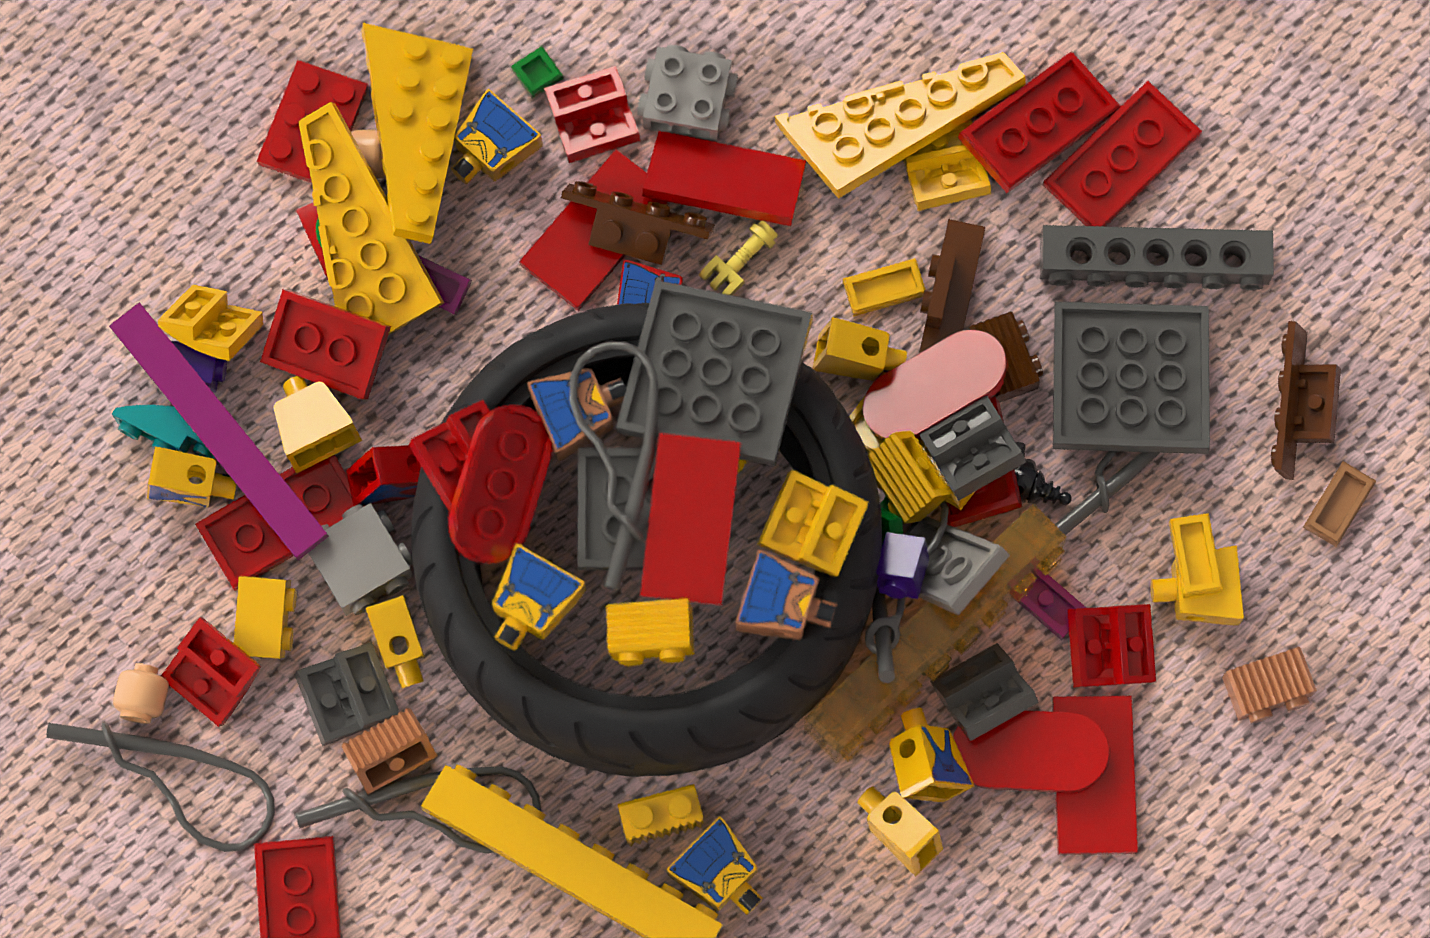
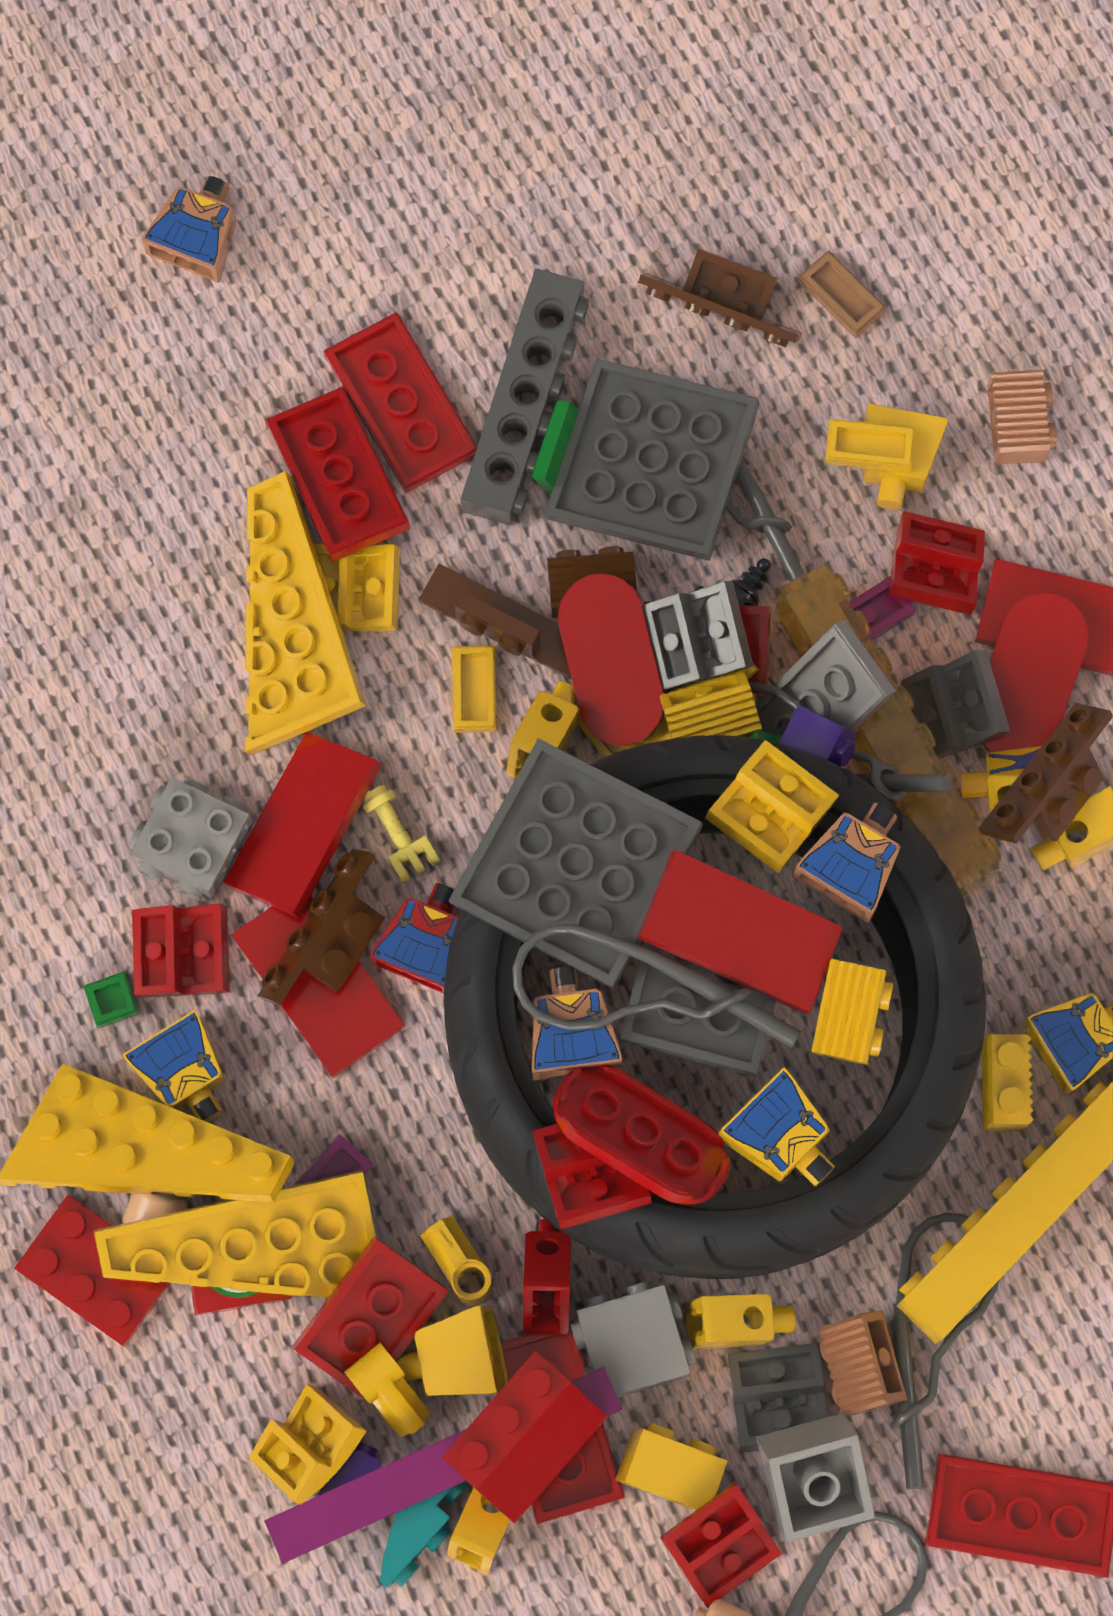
camera: 75 degrees left, 0 degrees up
(251, 481) = (524, 1437): none -> red slope
(274, 366) = (383, 1384): none -> yellow piece
(282, 732) = (815, 1477): none -> light grey brick
(392, 401) = (457, 1258): none -> yellow piece
(924, 779) = (1054, 781): none -> reddish brown bracket
(1118, 291) = (554, 445): none -> green tile

